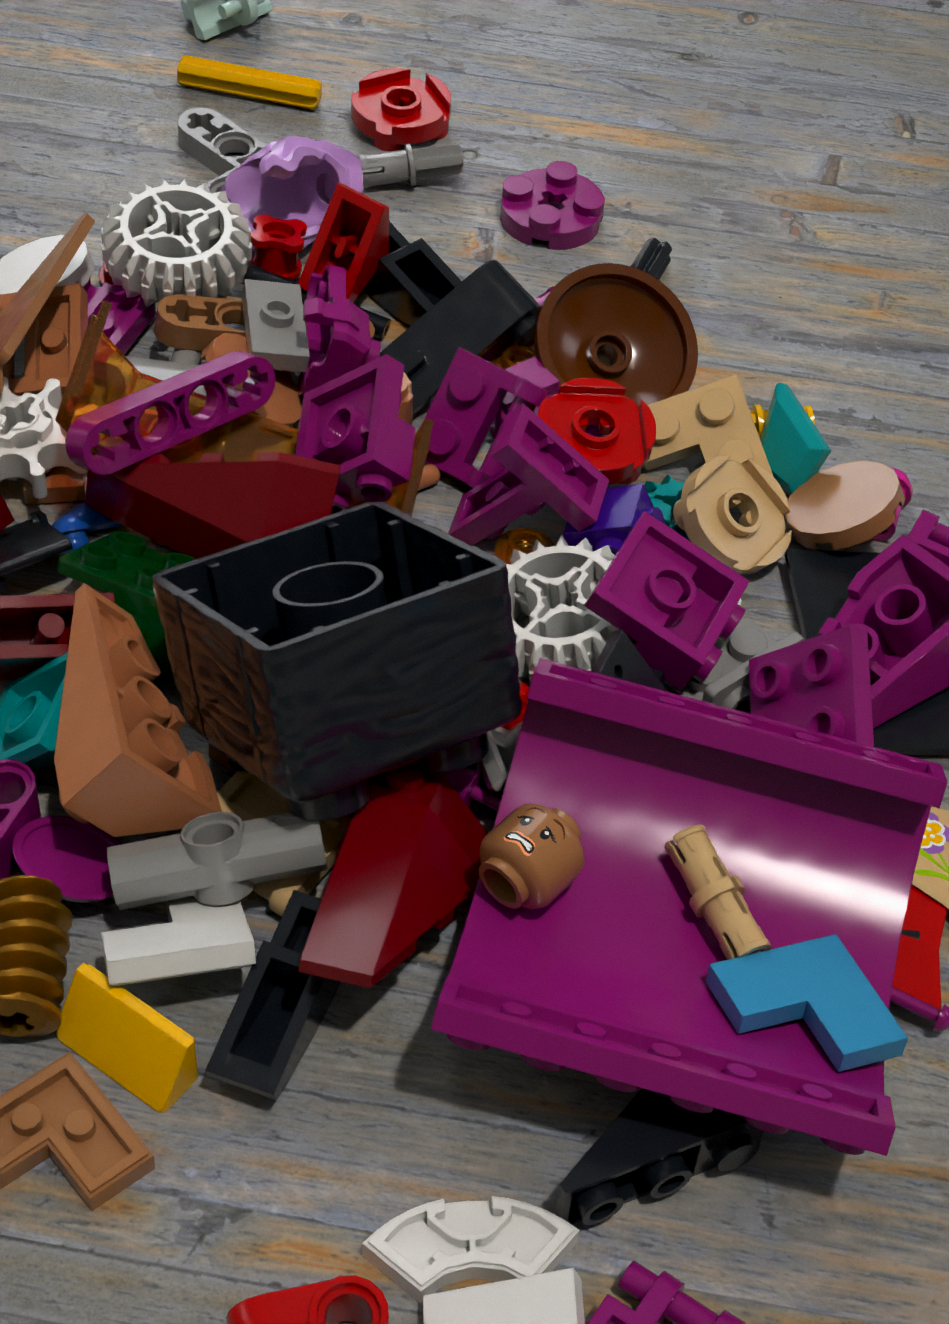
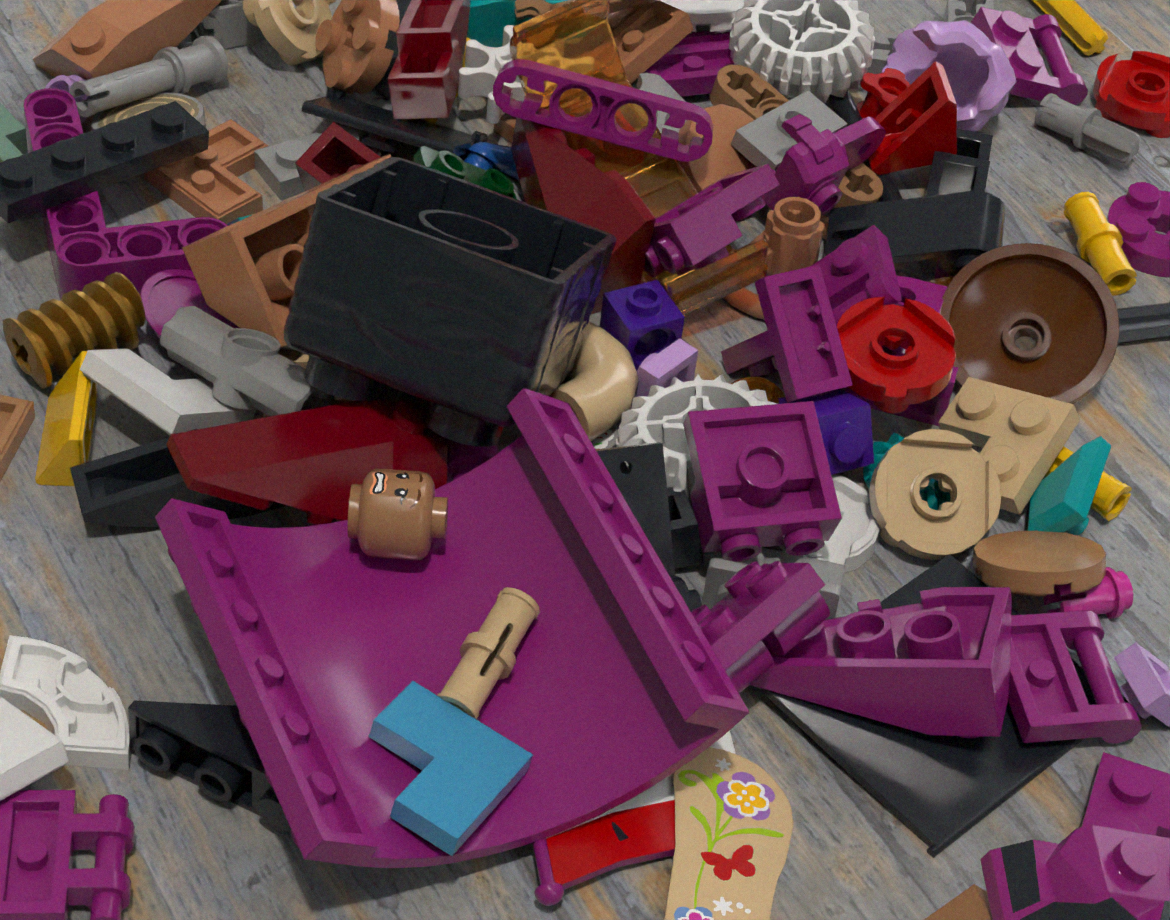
camera: 50 degrees right, 5 degrees down
(286, 119) = (1019, 41): none -> magenta plate
(536, 244) = (1099, 242): none -> yellow pin

